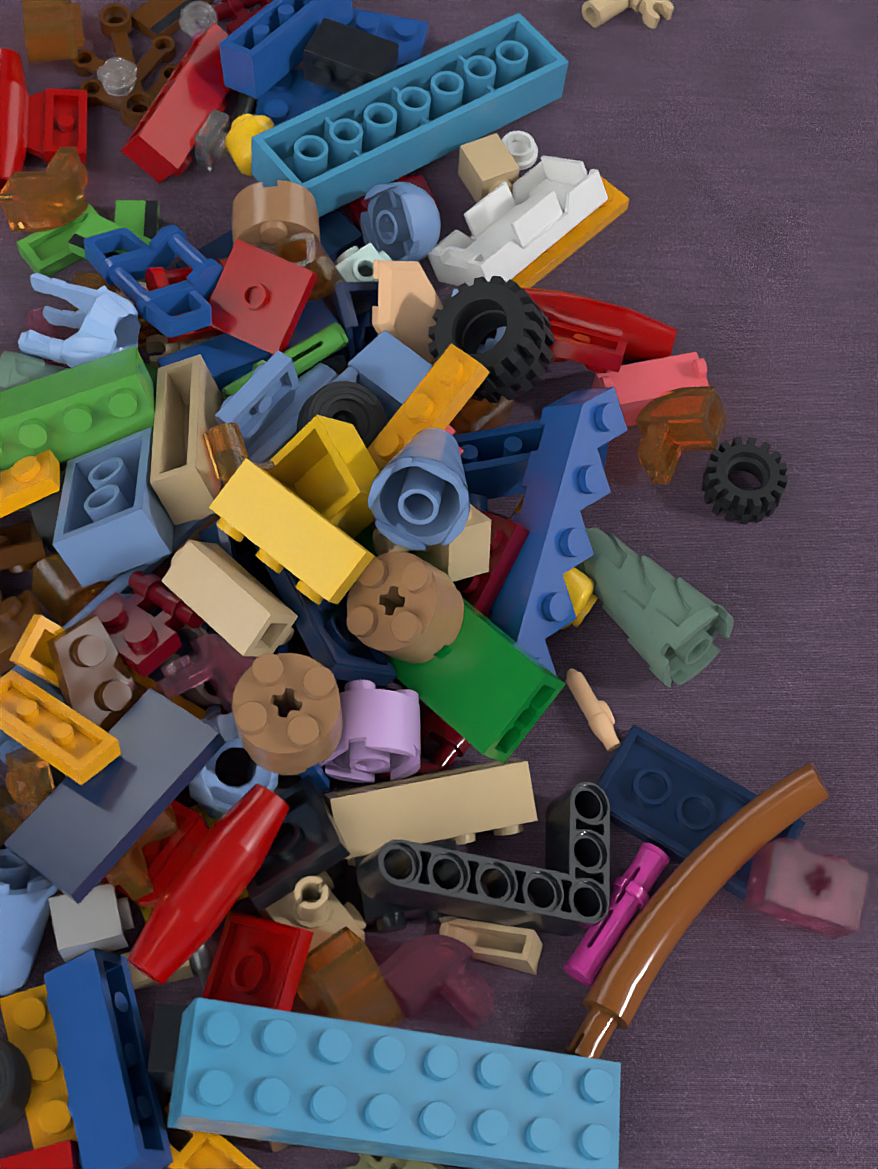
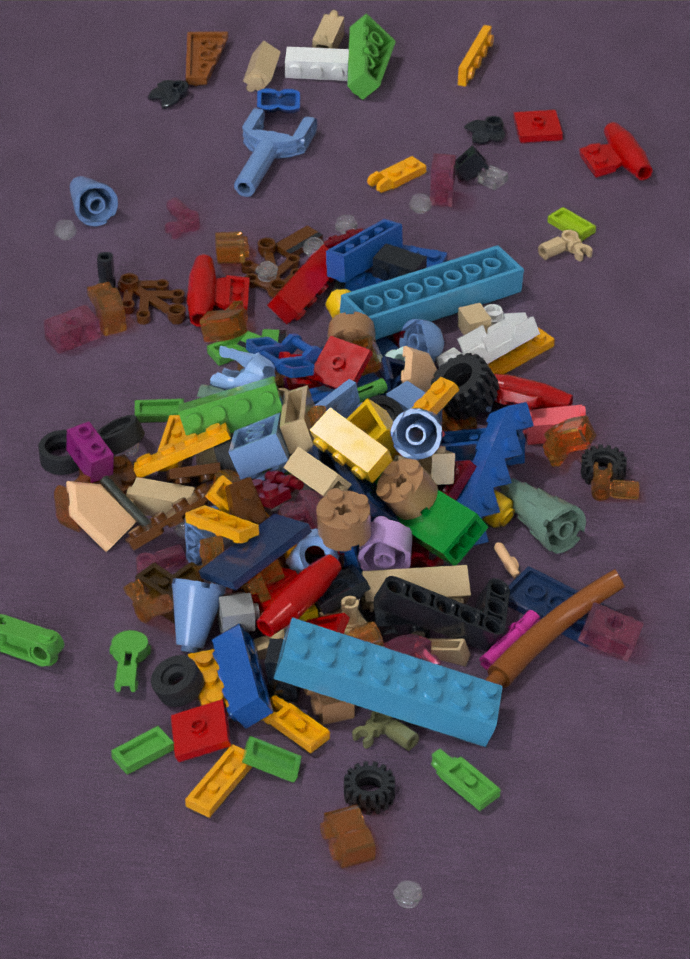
camera: 10 degrees right, 20 degrees down
(211, 140) = (317, 303): clear plate -> none
(757, 525) = (619, 489): none -> clear orange bar

